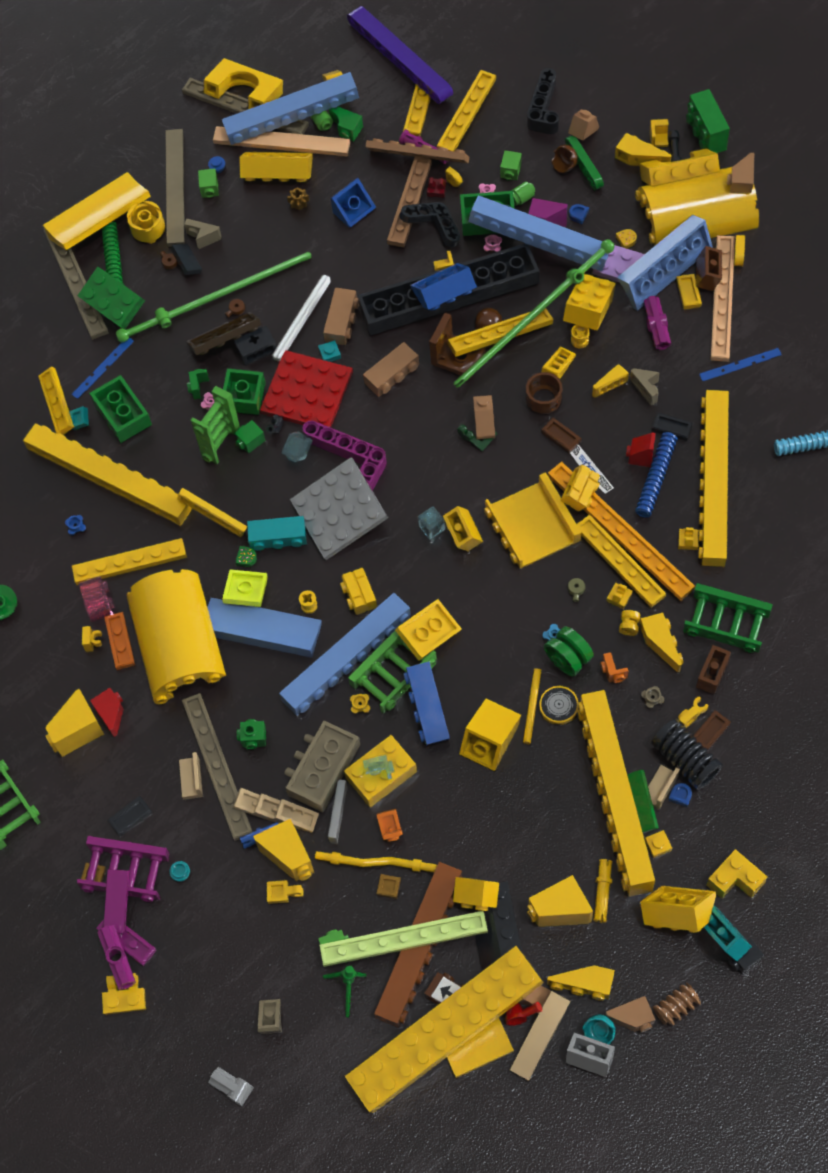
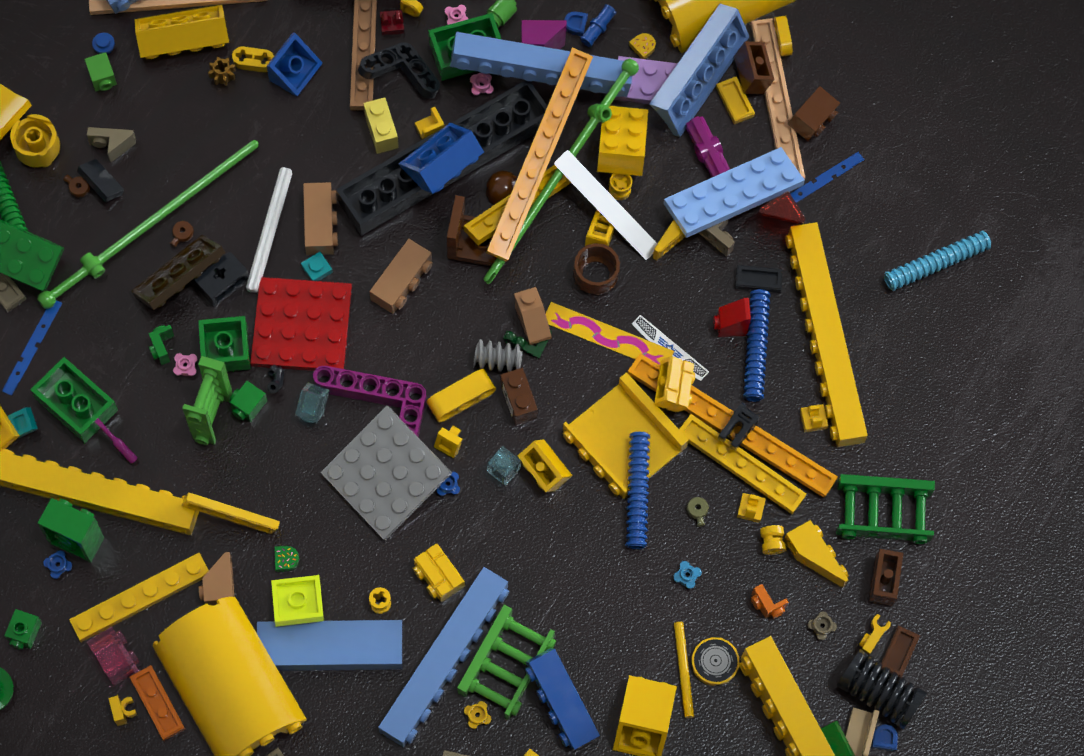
camera: 25 degrees left, 5 degrees up
(35, 565) = (22, 629): none -> green brick
(89, 498) = (71, 529): none -> green brick
(143, 446) = (118, 443): none -> magenta piece
(175, 187) = (58, 85): dark tan tile -> none
(191, 559) = (218, 581): none -> medium nougat slope
(277, 533) = (317, 520): teal brick -> none
(324, 195) = (253, 58): none -> yellow beam
(386, 532) = (452, 488): none -> blue plate
(393, 496) = (448, 441): none -> yellow tile
(406, 258) = (381, 125): none -> light yellow brick
(413, 465) = (461, 395): none -> yellow beam
(428, 629) = (537, 604): yellow plate -> none
(449, 442) = (497, 356): none -> light grey piece
(457, 474) = (518, 396): none -> reddish brown brick
(519, 297) = (539, 155): none -> light orange plate
(531, 562) = (638, 479): none -> blue piece
(535, 442) = (604, 334): none -> yellow sticker
(561, 435) = (629, 318): reddish brown tile -> none
(563, 346) = (606, 204): none -> white sticker
(568, 651) = (712, 593): green wheel -> none
(594, 217) = (598, 25): none -> blue pin
(627, 524) = (745, 419): none -> black piece
(667, 356) = (733, 192): none -> light blue plate
(701, 375) = (783, 209): none -> clear red slope
(748, 311) = (814, 113): none -> reddish brown brick

